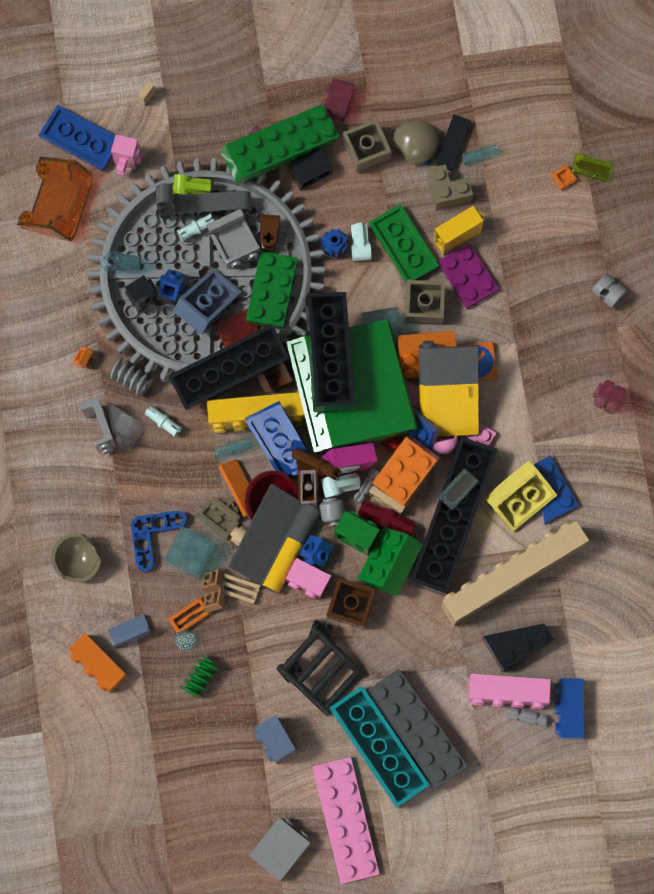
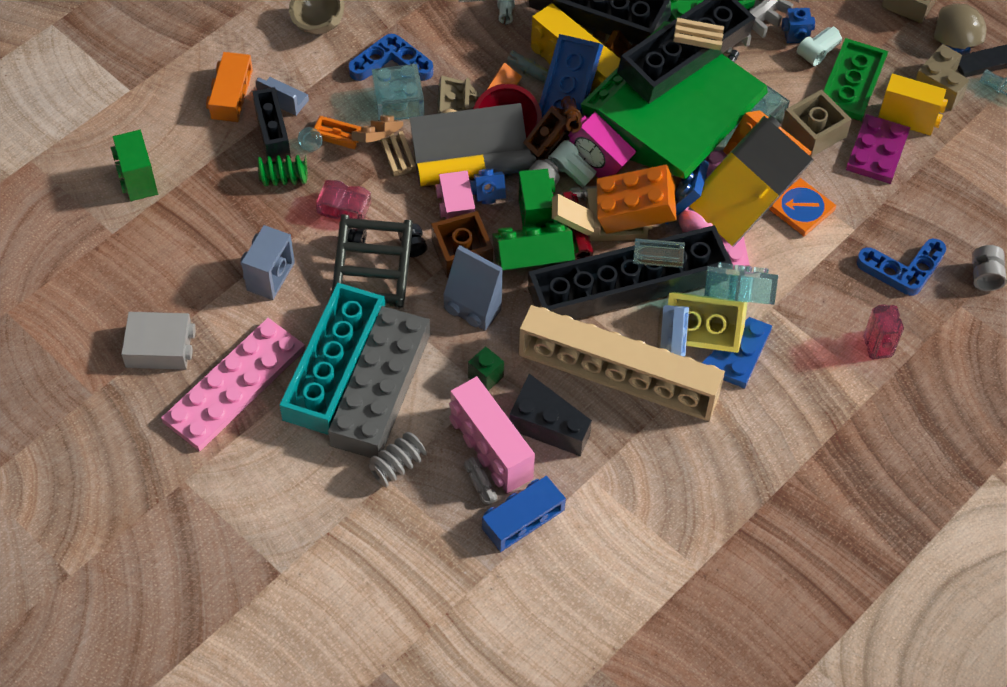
camera: 50 degrees right, 20 degrees down
(127, 775) = (133, 165): none -> green brick
(156, 658) = (271, 123): none -> black brick
(256, 653) = (342, 199): none -> clear pink brick
(347, 331) = (698, 30): none -> tan tile
(390, 520) = (572, 214): none -> tan tile
(398, 626) = (473, 289): none -> sand blue slope
(455, 657) = (486, 367): none -> dark green brick
(479, 759) = (396, 457): none -> light grey piece
(518, 457) = (741, 283): none -> clear light blue brick
(518, 523) = (674, 329): none -> light blue bracket
(570, 343) = (903, 273): none -> blue beam

